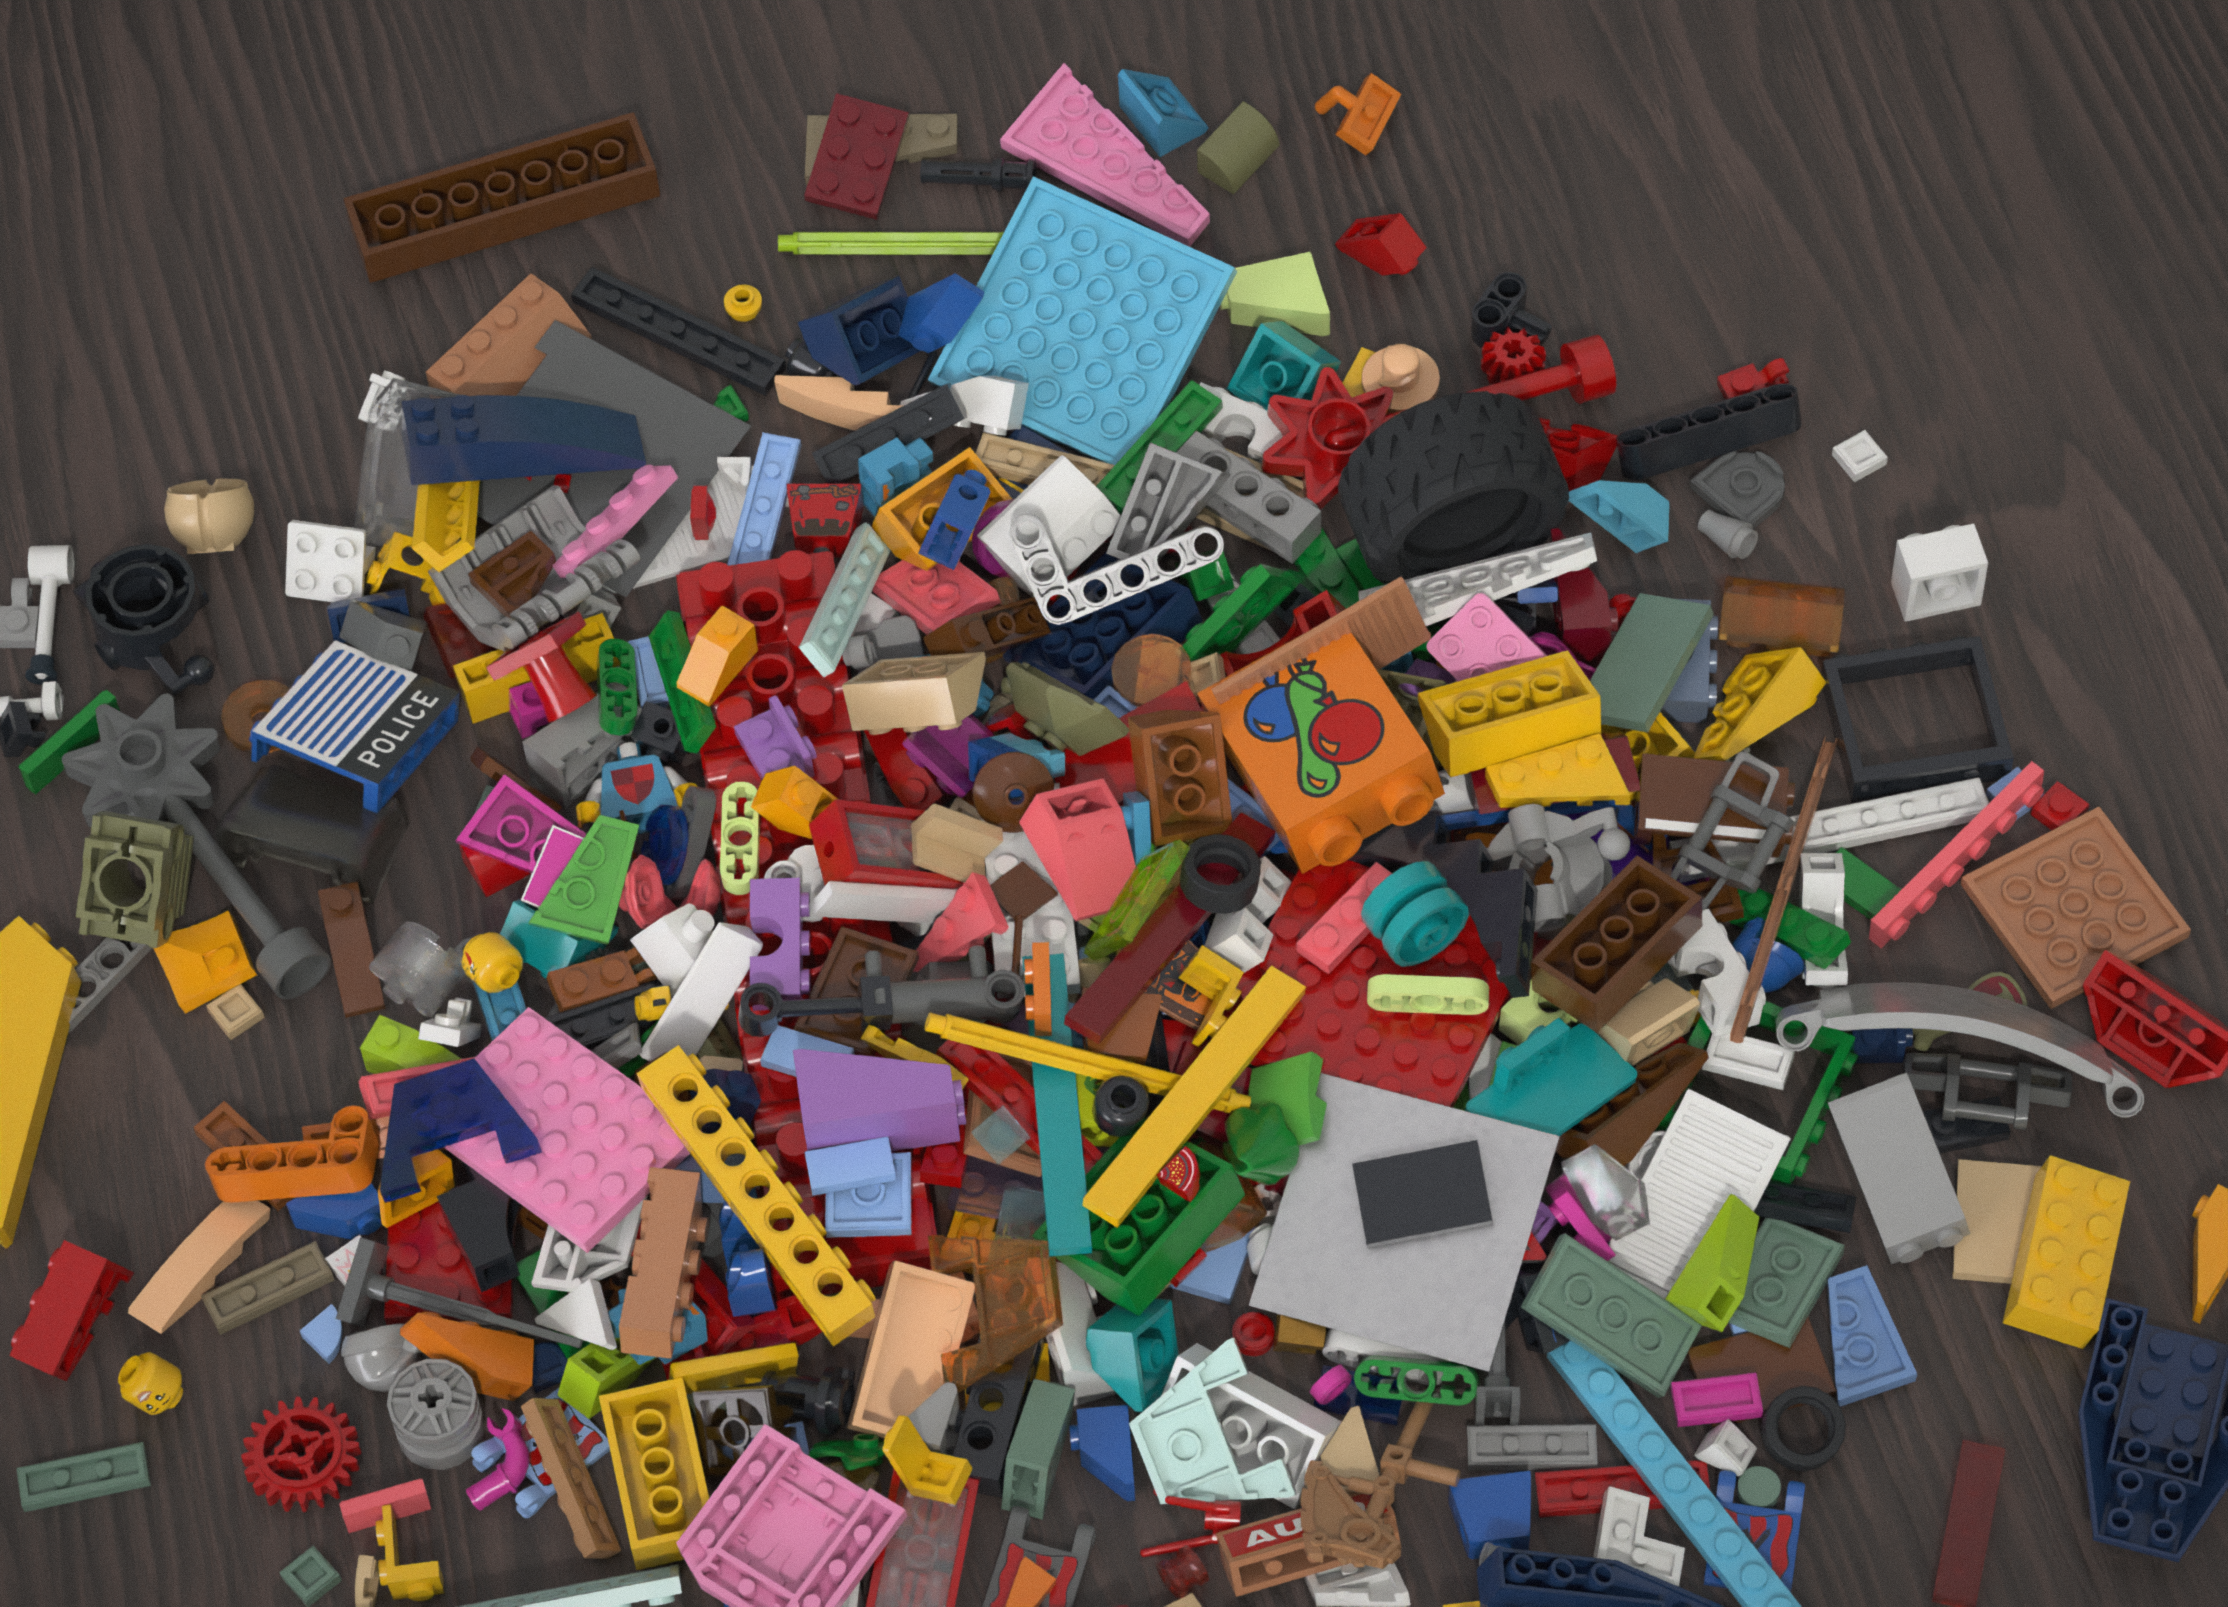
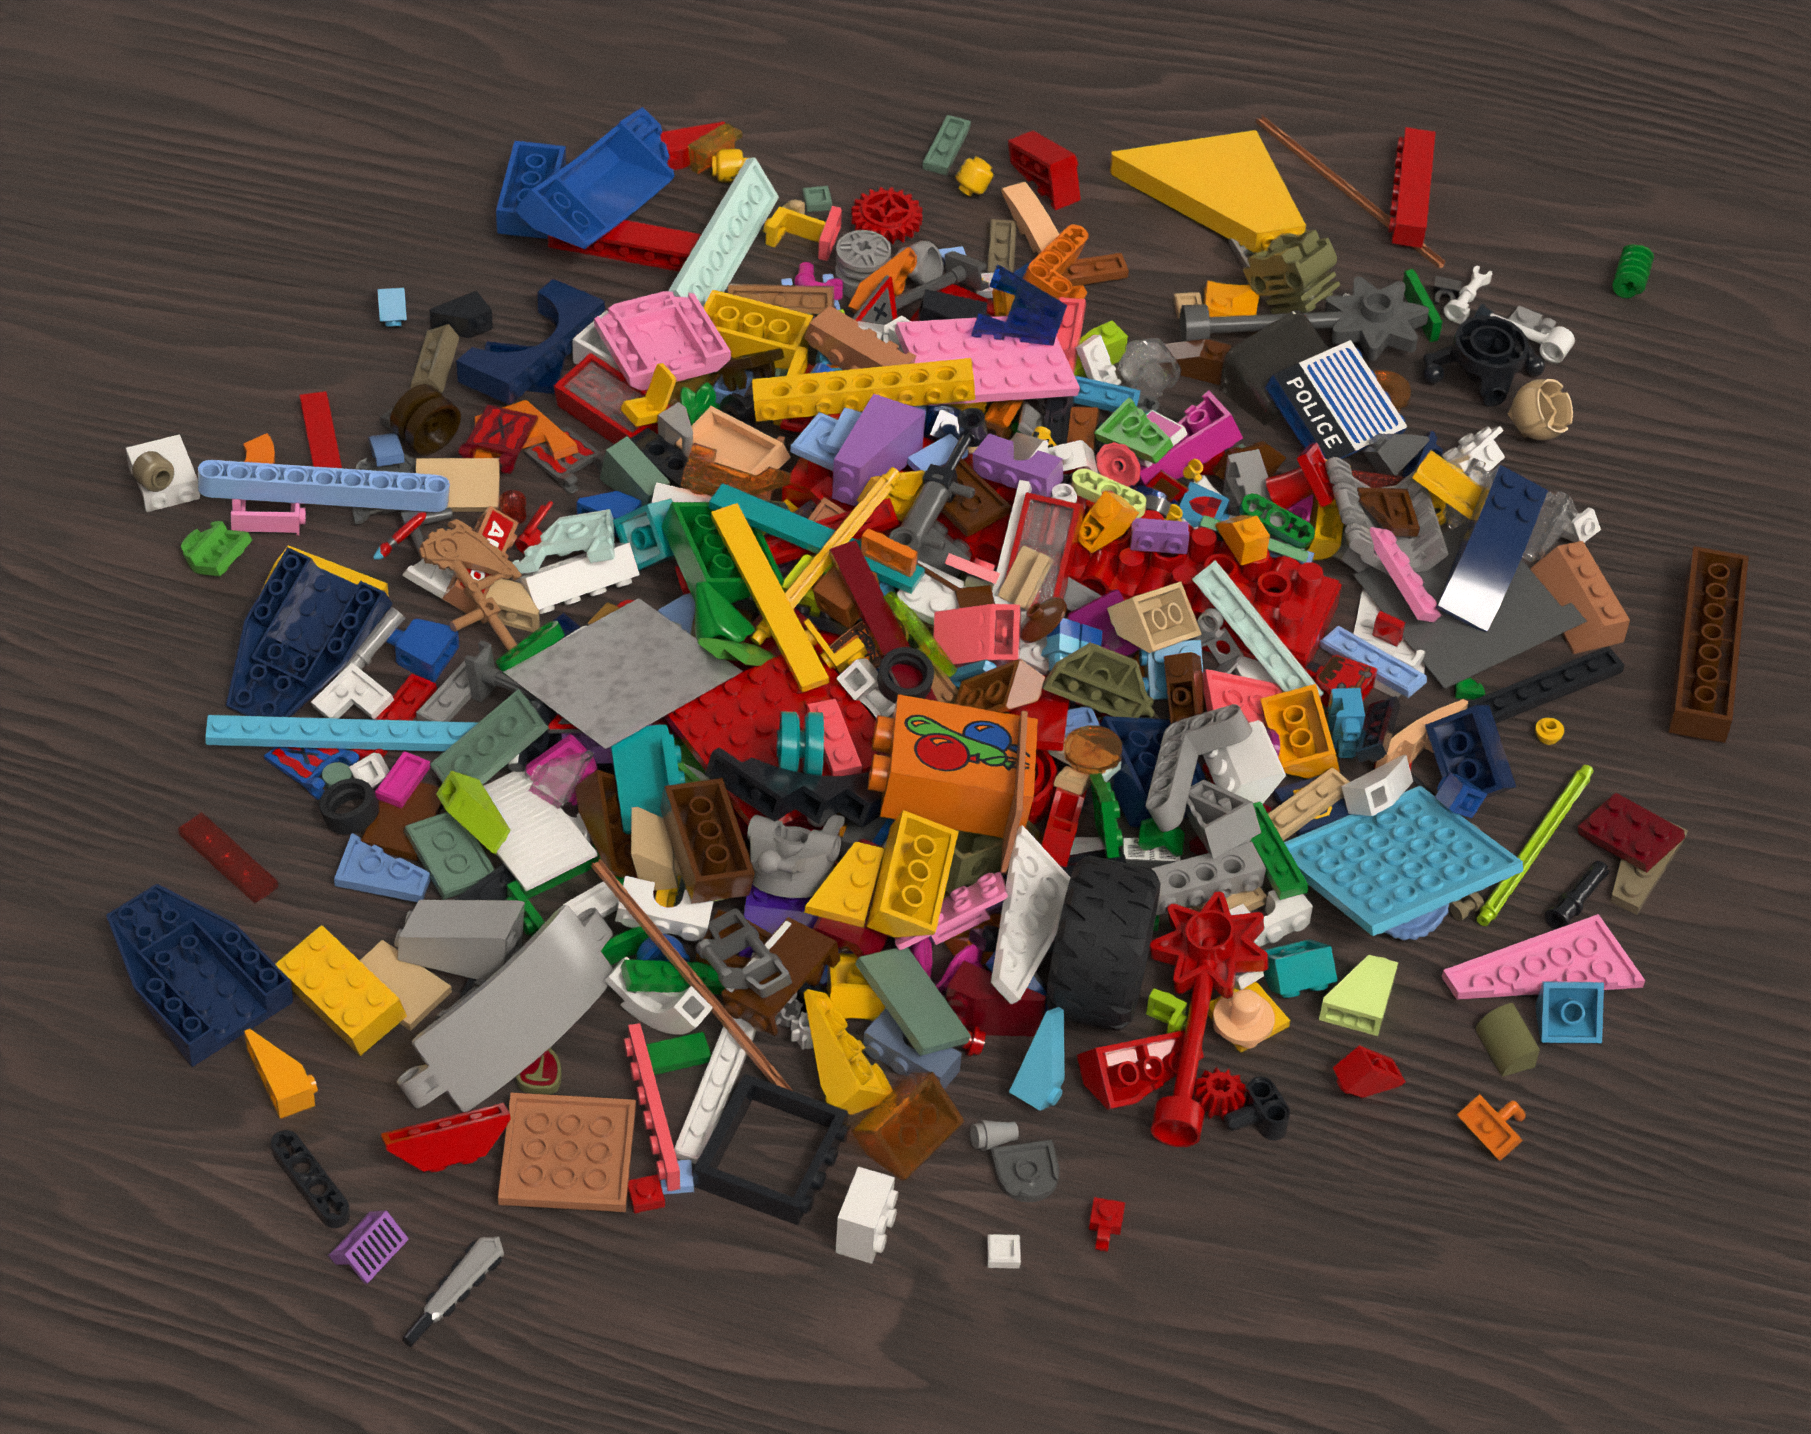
camera: 115 degrees right, 10 degrees down
(490, 961) = (1121, 384): yellow head -> none
(960, 509) = (1278, 708): blue torso -> none
(1000, 1135) = (816, 506): clear light blue plate -> none
(1120, 1106) = (788, 560): black head -> none
(1182, 1175) = (718, 556): red tile -> none
(1331, 1384) = (561, 612): dark pink tile -> none
(1422, 1194) = (627, 678): black tile -> none
(1428, 994) = (752, 732): yellowish green beam -> none
(1709, 431) = (1079, 1164): black beam -> none

